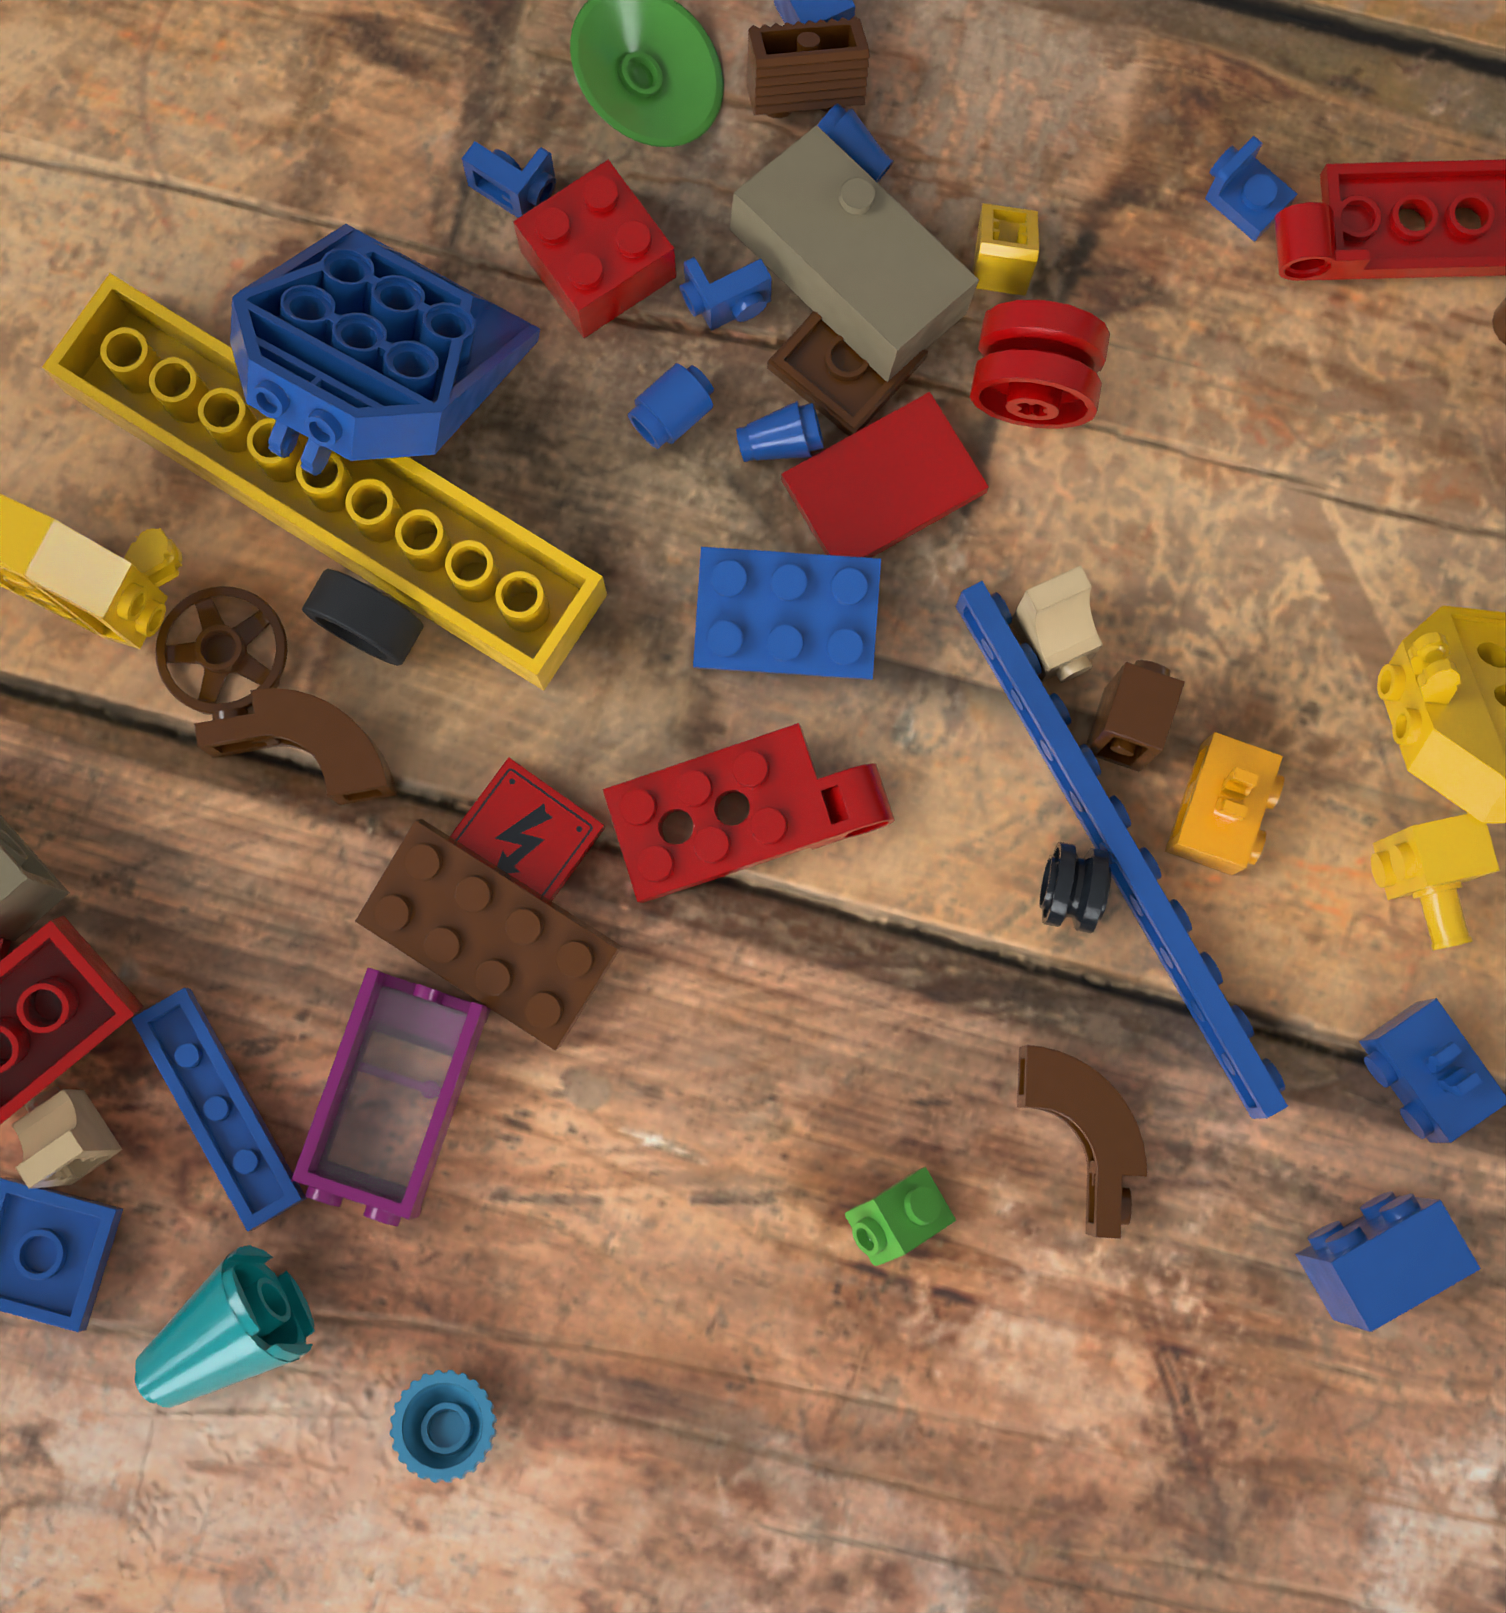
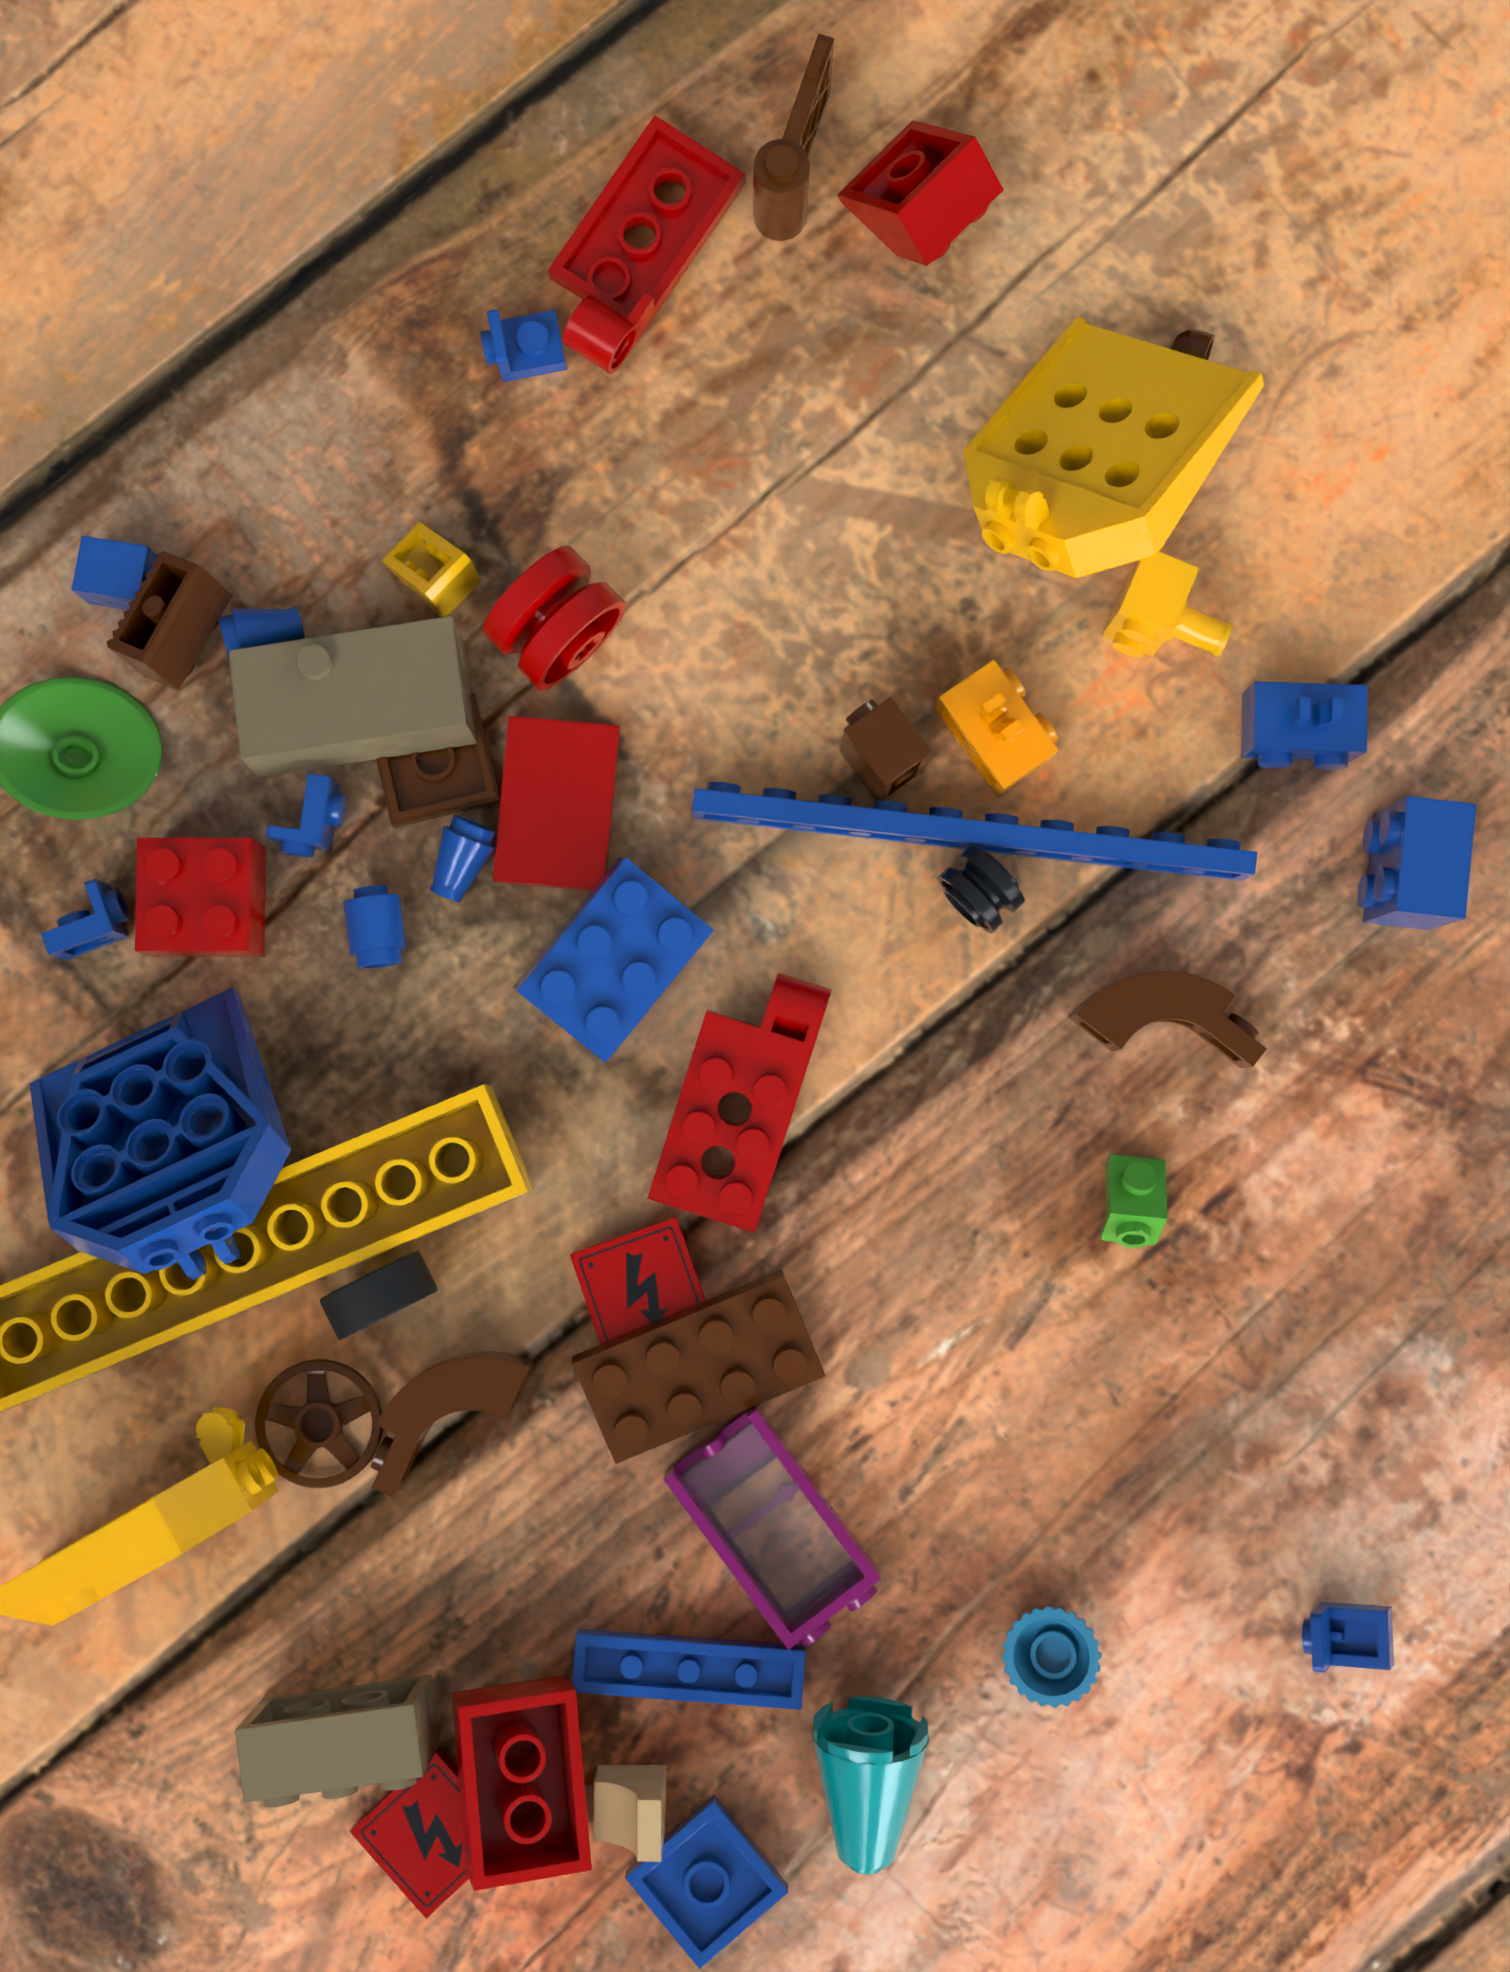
camera: 55 degrees left, 5 degrees up
(1059, 625) = (773, 755): tan arch -> none

